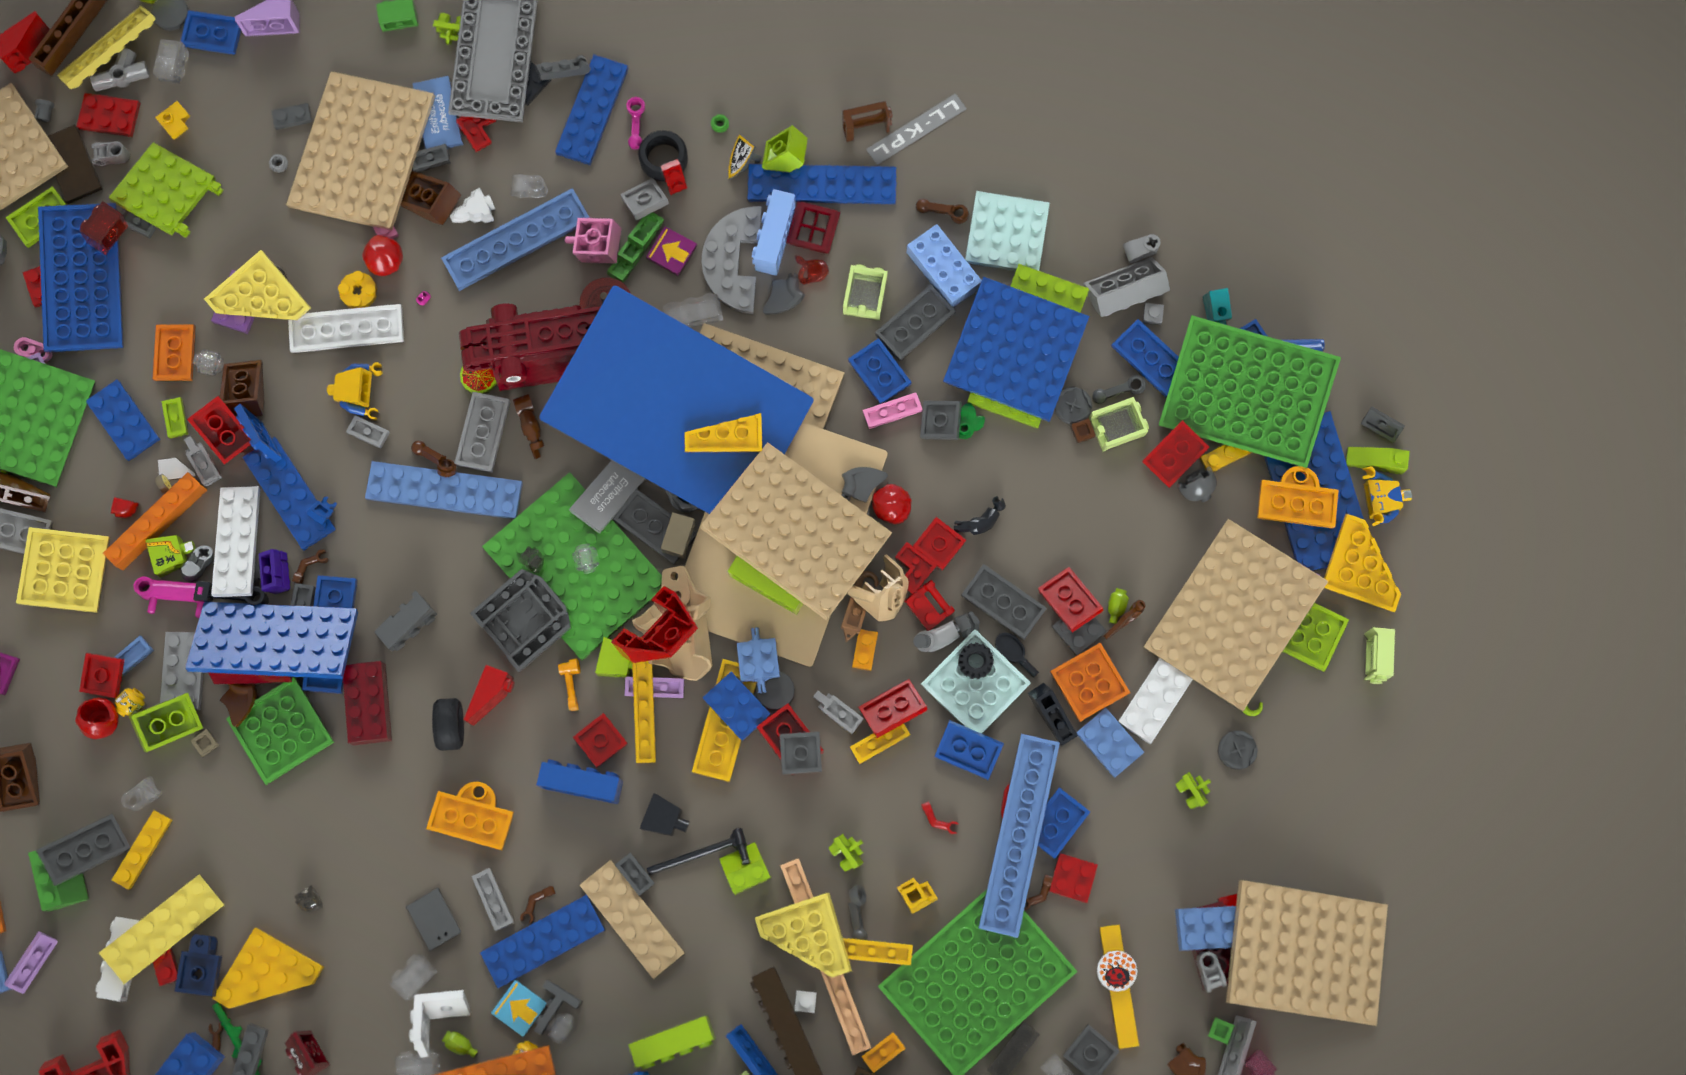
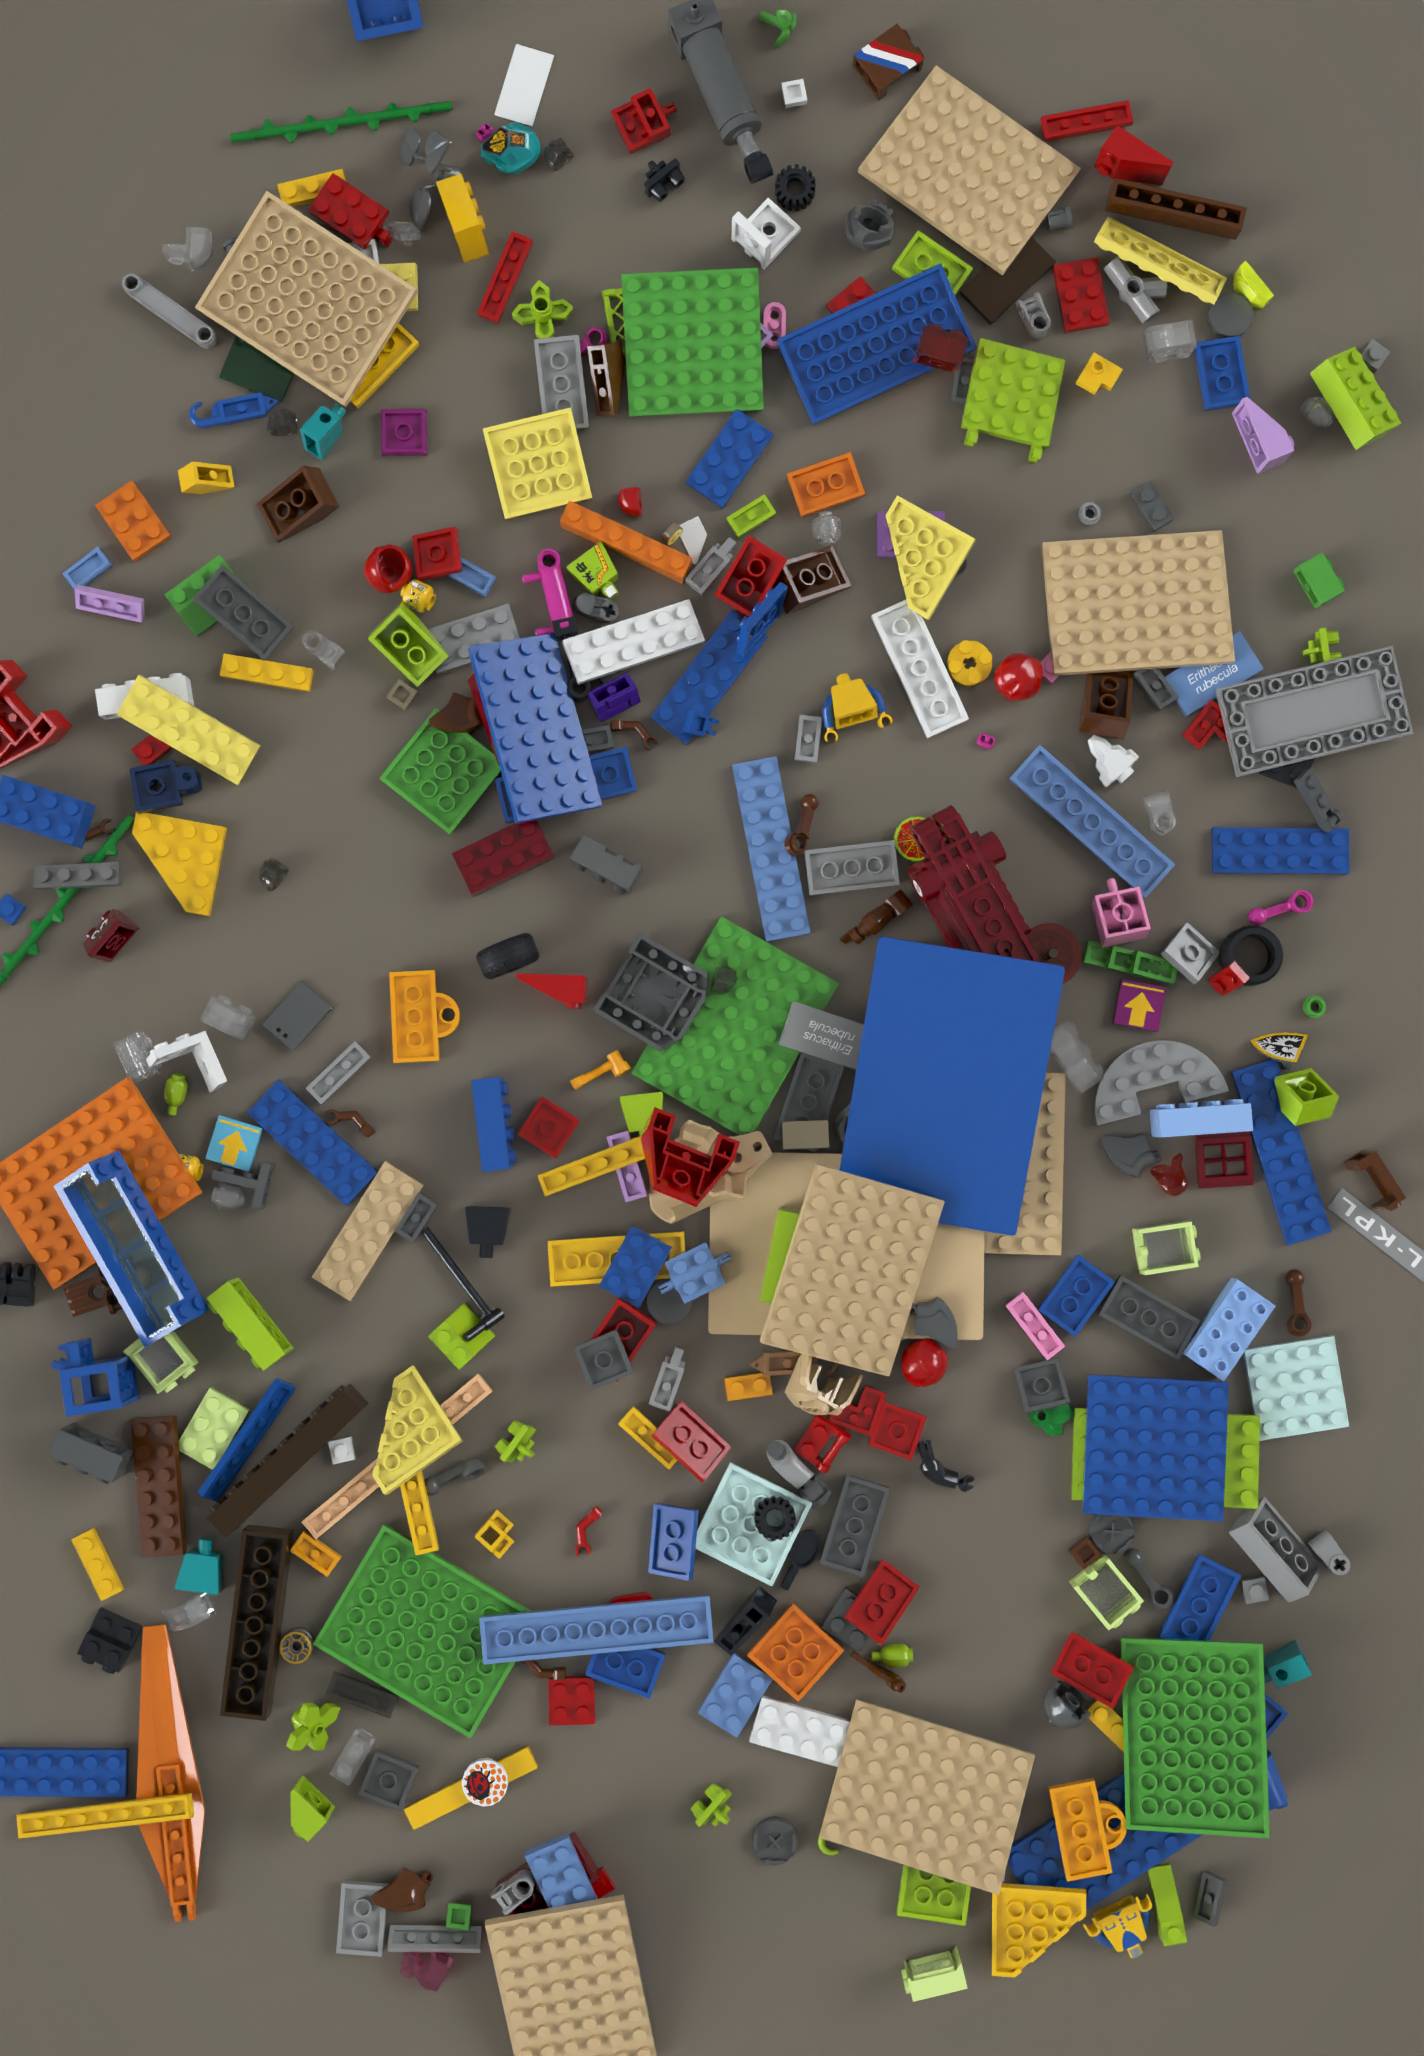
camera: 70 degrees right, 10 degrees up
(585, 558) = (743, 1040): clear head -> none
(730, 436) = (936, 1158): yellow wing -> none

